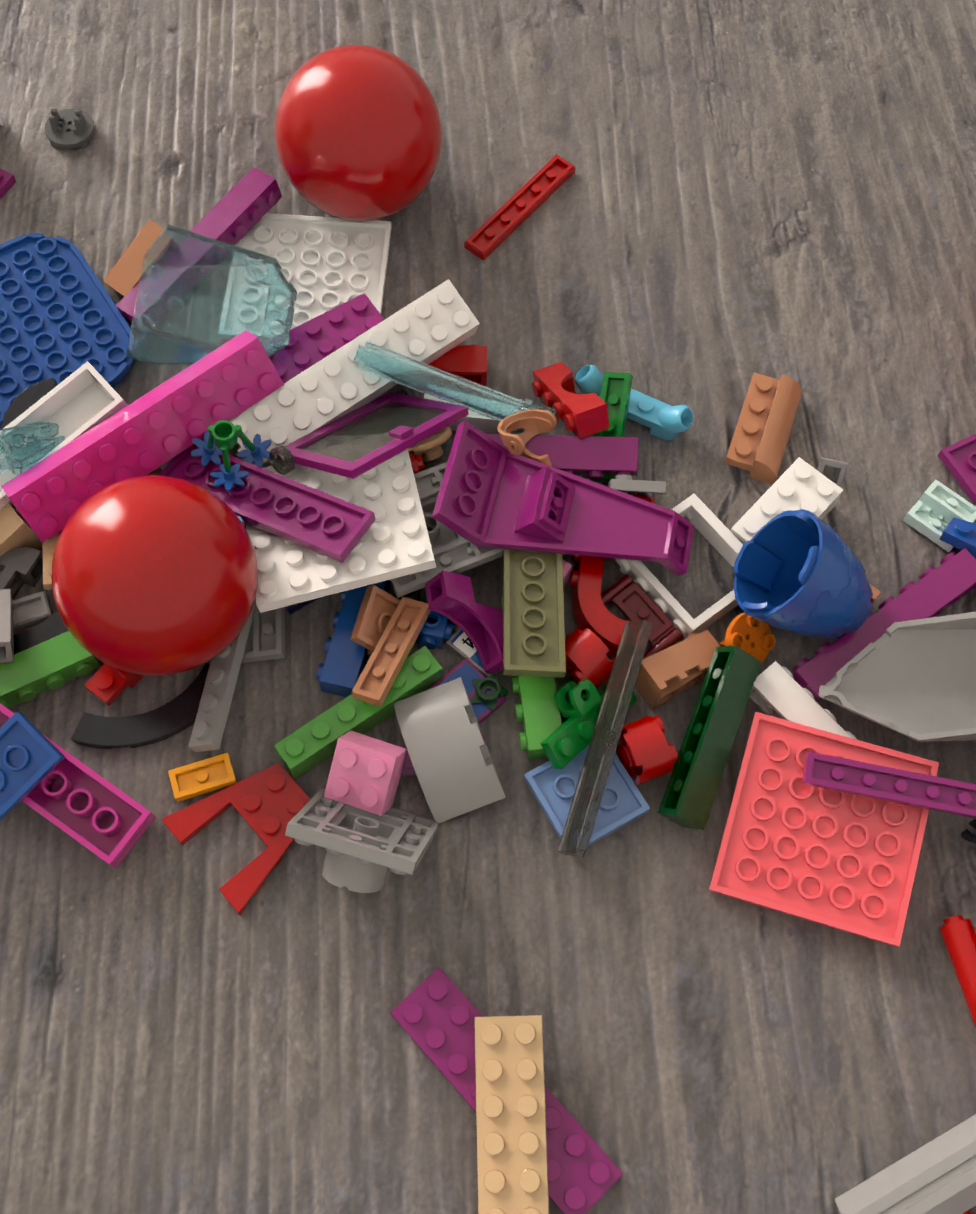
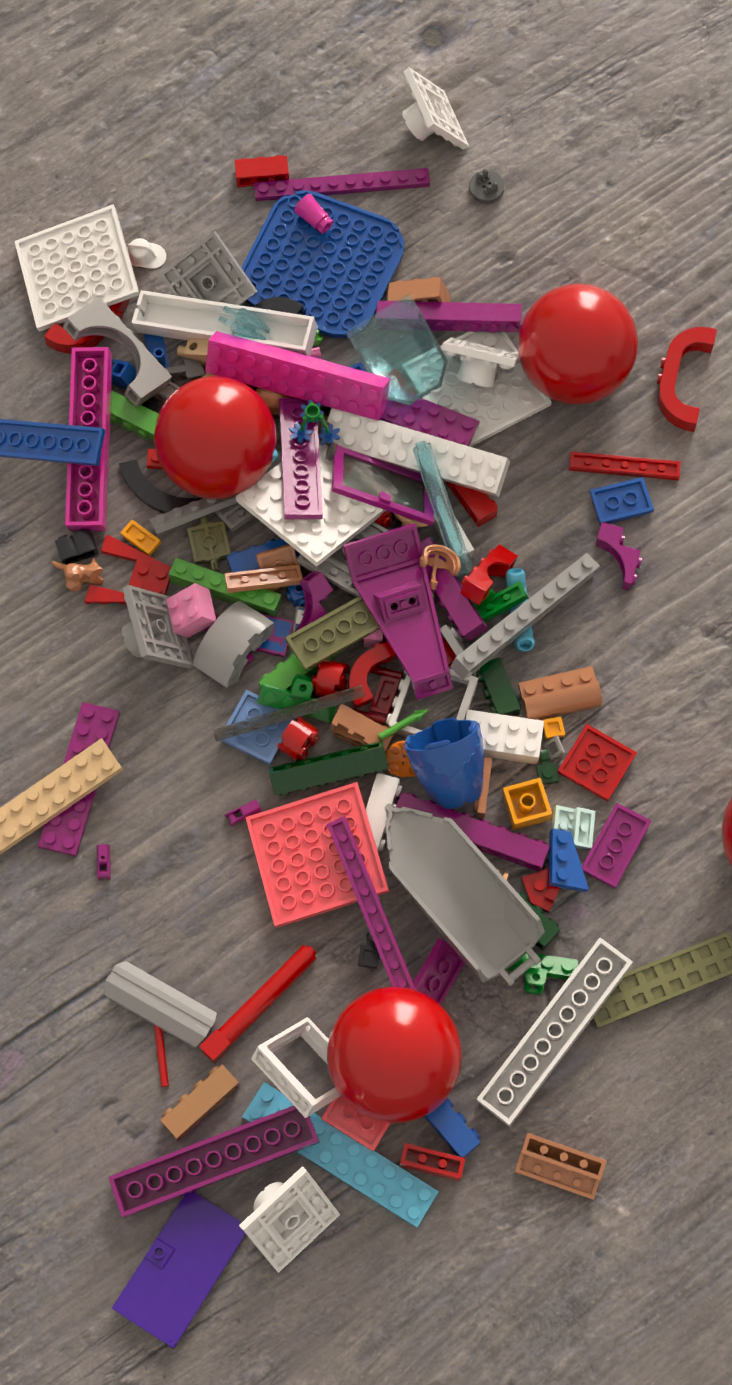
camera: 60 degrees right, 5 degrees up
(149, 872) = (76, 547): none -> black brick
(192, 896) = (78, 574): none -> nougat animal
(278, 694) = (209, 542): none -> olive plate
(296, 241) = (479, 361): none -> white piece
(467, 119) = (672, 408): none -> red arch
(488, 683) = (277, 647): dark green plate -> none
(563, 231) = (621, 501): none -> blue plate
(641, 265) = (611, 540): none -> magenta arch
(654, 1134) = (103, 859): none -> magenta bar
(657, 399) = (524, 616): none -> light grey brick
(698, 884) = (246, 810): none -> magenta bar
(703, 591) = (416, 716): none -> bright green piece
(717, 484) = (498, 688): none -> dark green brick
(806, 453) = (553, 727): none -> light orange plate
(855, 499) = (547, 771): none -> dark green plate
(875, 441) = (597, 762): none -> red plate
(893, 541) = (526, 804): none -> light orange brick

